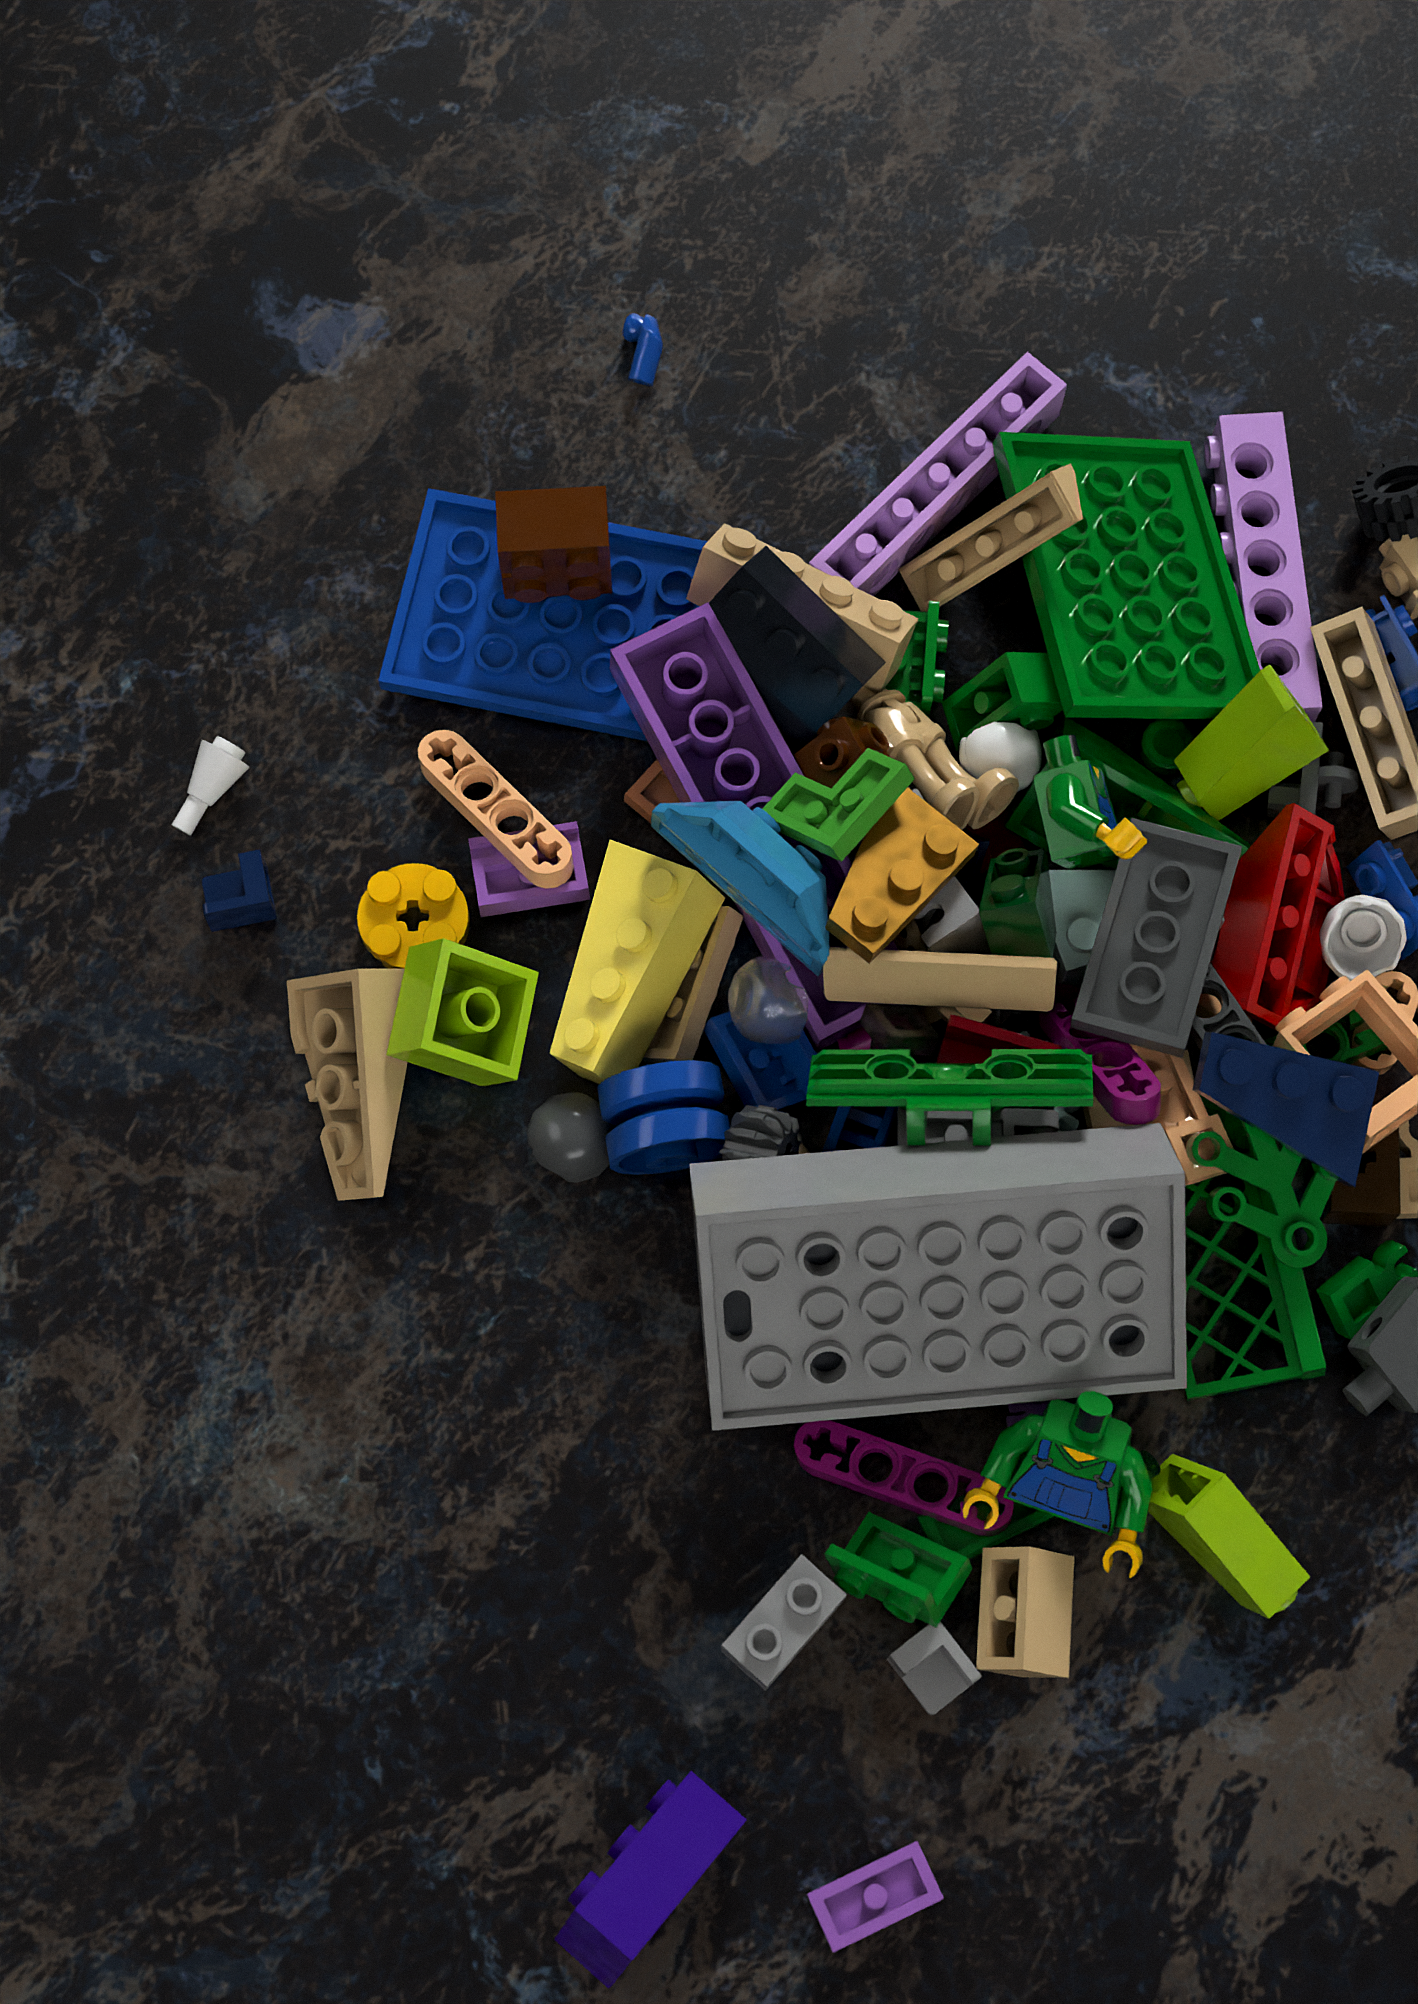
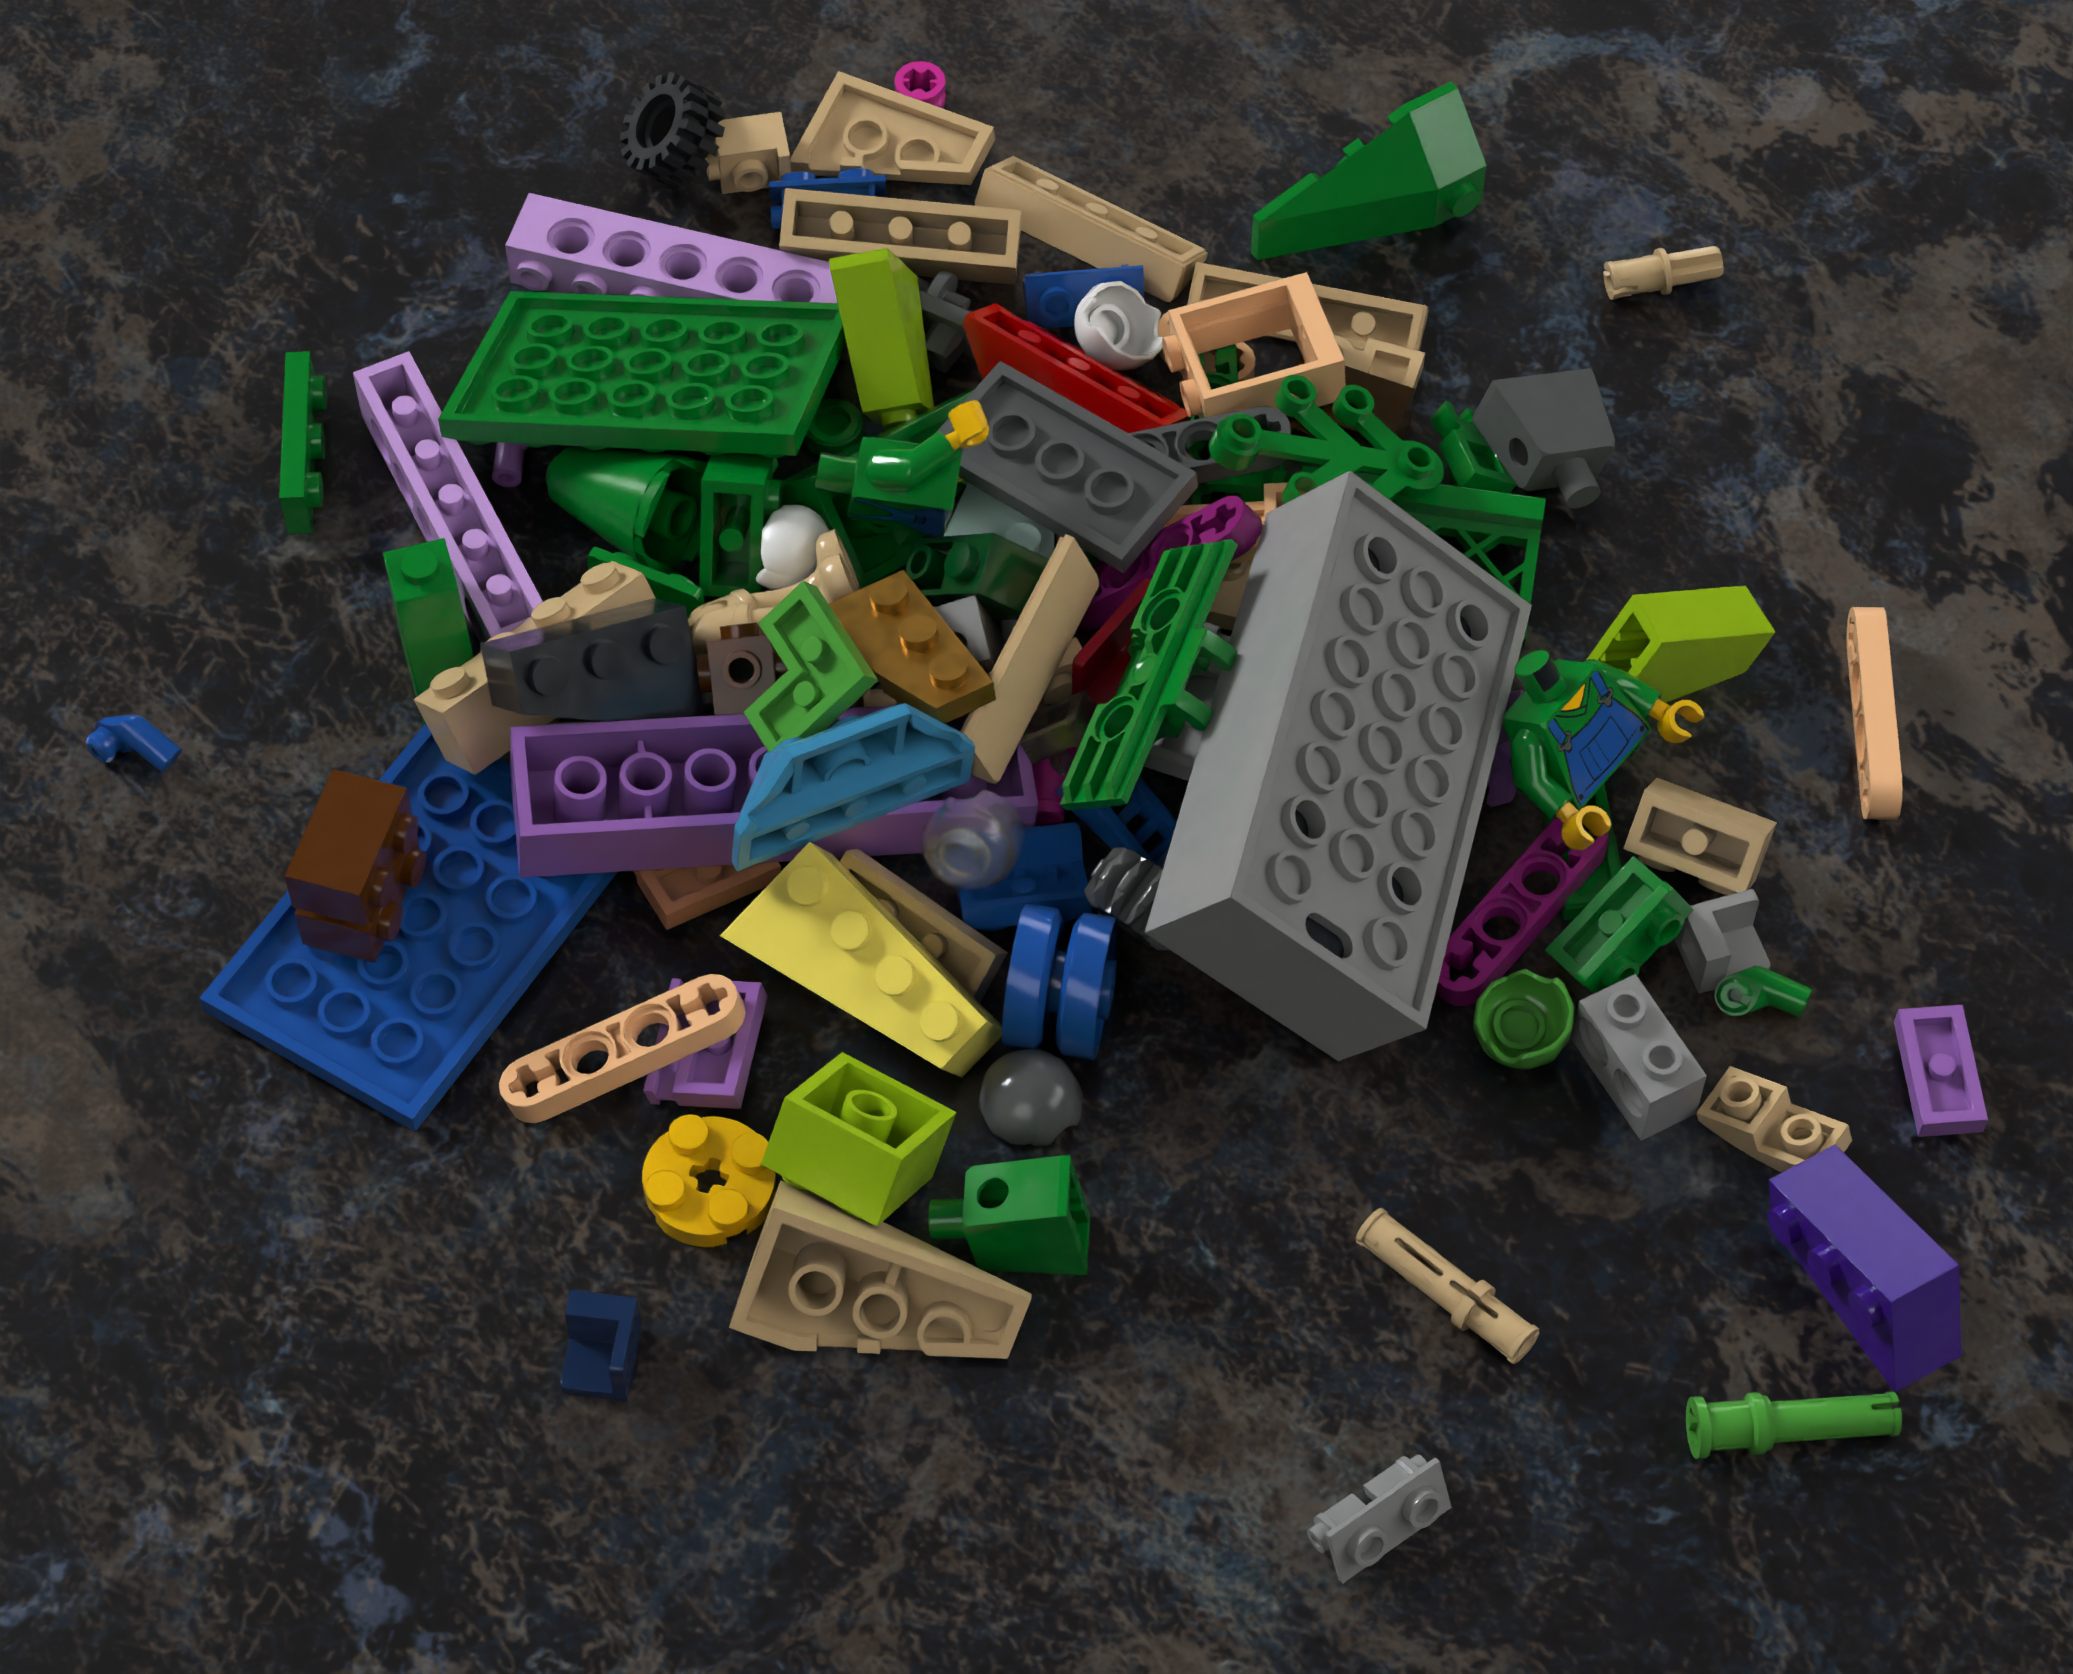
camera: 70 degrees left, 15 degrees down
(214, 772) = (438, 1327): white cone -> none
(266, 1524) = (1403, 1502): none -> light grey hinge
(444, 1164) = (1019, 1217): none -> green torso
(470, 1827) = (1761, 1423): none -> bright green pin
(513, 1528) = (1469, 1302): none -> tan pin
(769, 1761) = (1765, 1124): none -> tan slope
(783, 1513) = (1524, 1019): none -> bright green hair
(811, 503) = (427, 611): none -> green slope
(902, 1708) = (1760, 988): none -> green arm
(967, 346) = (301, 442): none -> green plate
(995, 539) = (559, 462): tan slope -> none
(996, 621) = (633, 501): none -> green cone
(1231, 1735) = (1874, 713): none -> light nougat beam
(1297, 1098) = (1285, 395): dark blue wing -> none

